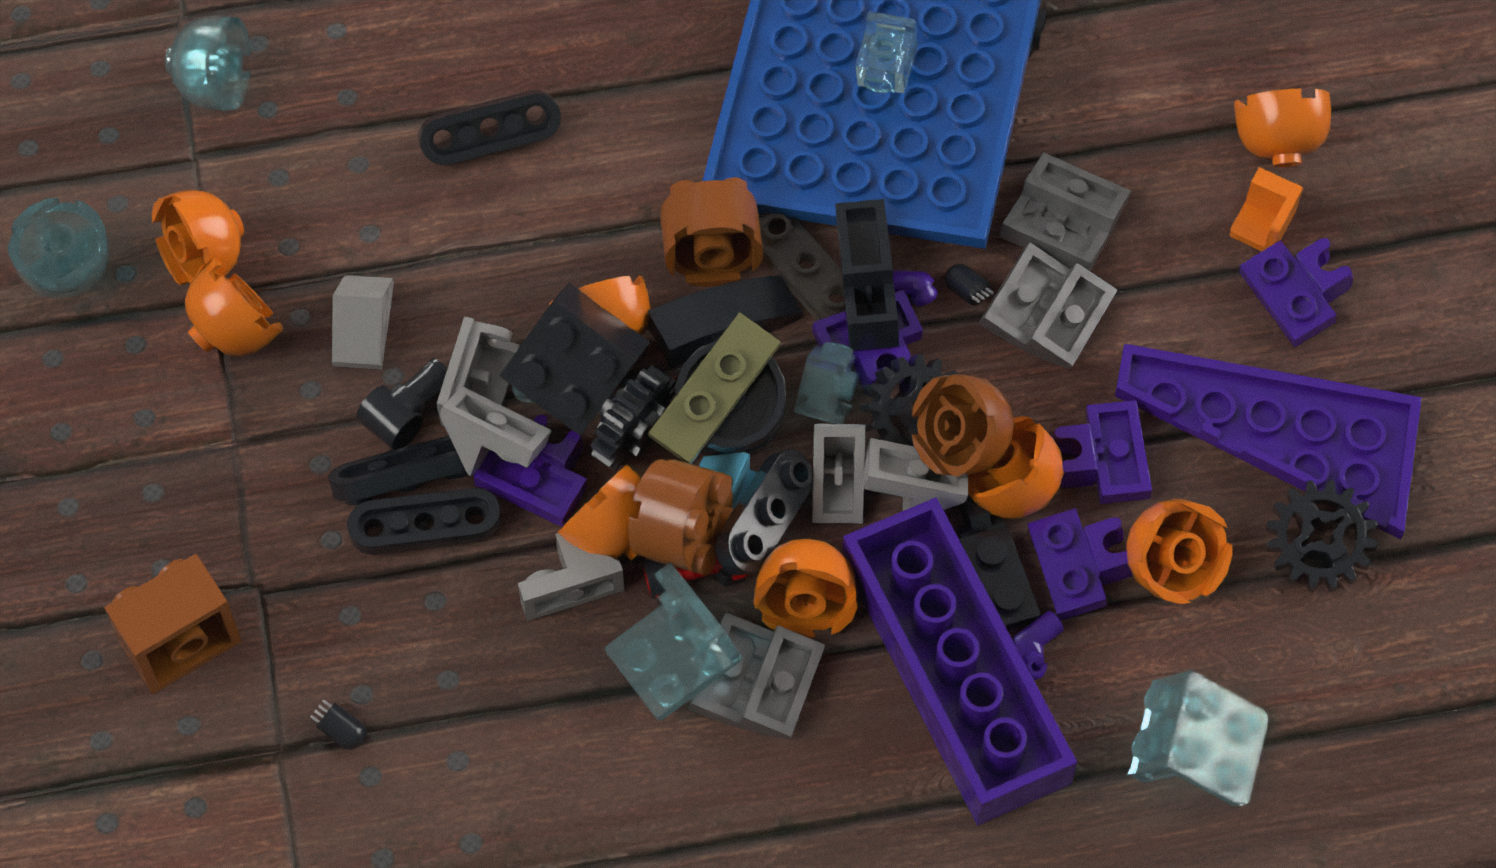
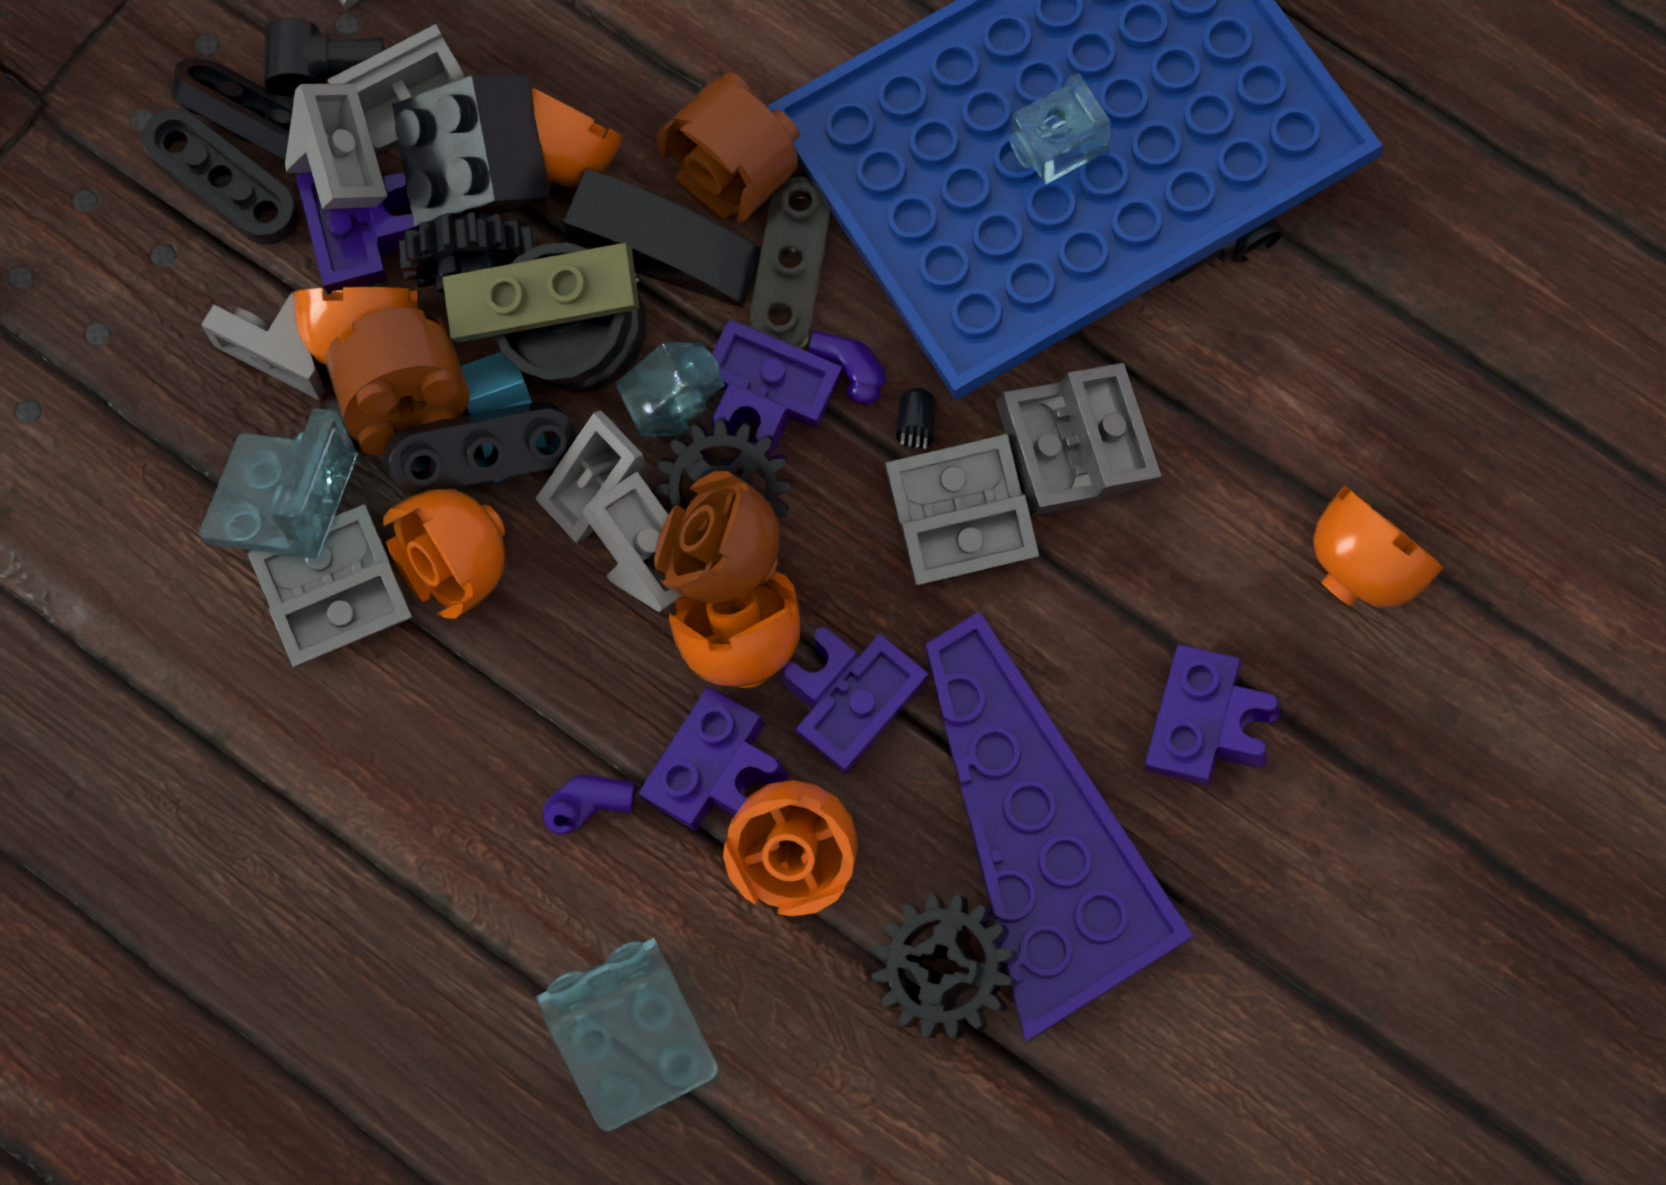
camera: 50 degrees right, 10 degrees up
(867, 275) = (812, 320): black slope -> none
(958, 662) = (493, 745): dark purple brick -> none
(997, 565) = (633, 704): black hinge -> none
(1266, 211) = (1263, 620): orange panel -> none

